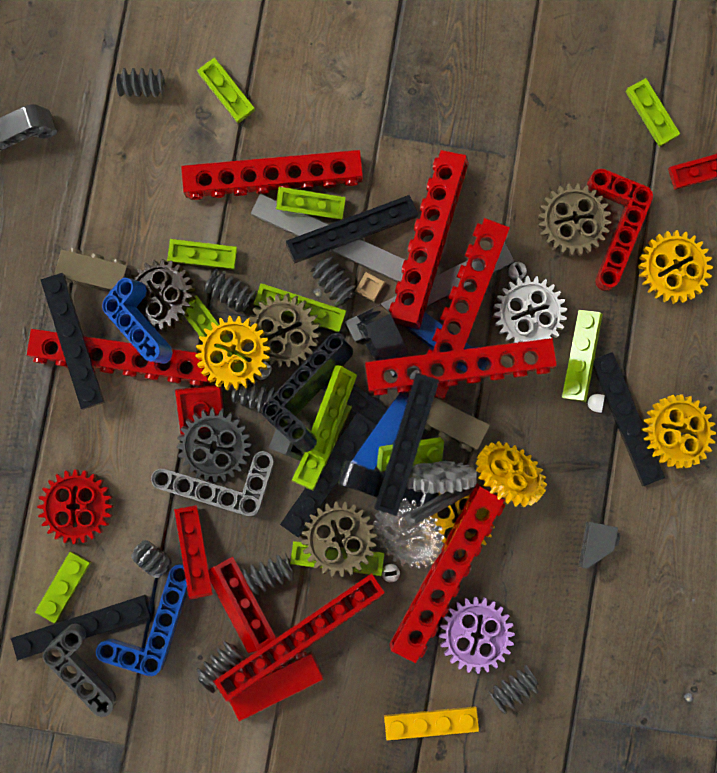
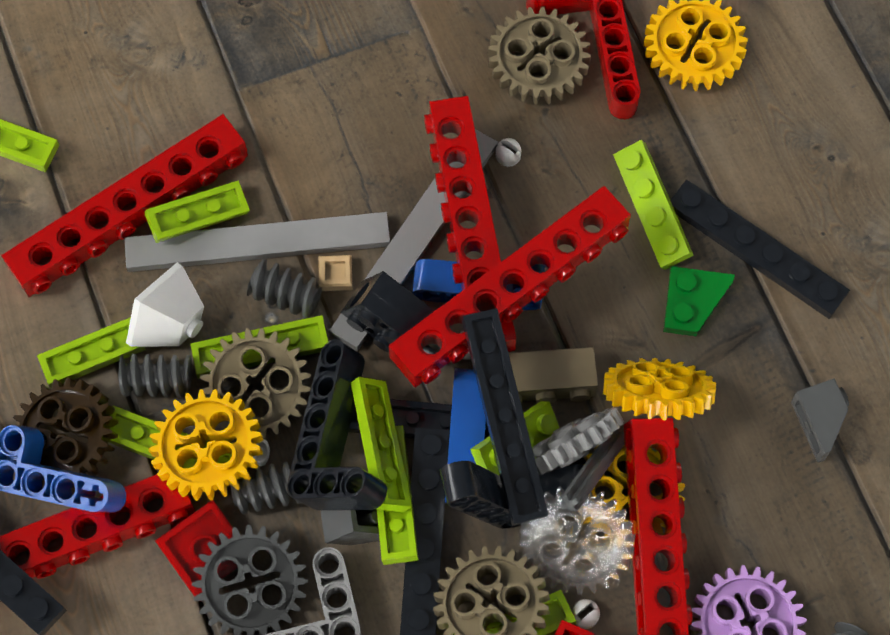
camera: 30 degrees left, 15 degrees down
(256, 258) = (166, 311): none -> white slope
(351, 229) = (268, 213): black plate -> none
(447, 163) = (351, 71): red brick -> none
(522, 294) = (532, 173): white gear -> none
(569, 426) = (693, 298): none -> green wing
(595, 402) = (707, 250): white hinge -> none
(675, 451) = (829, 224): yellow gear -> none

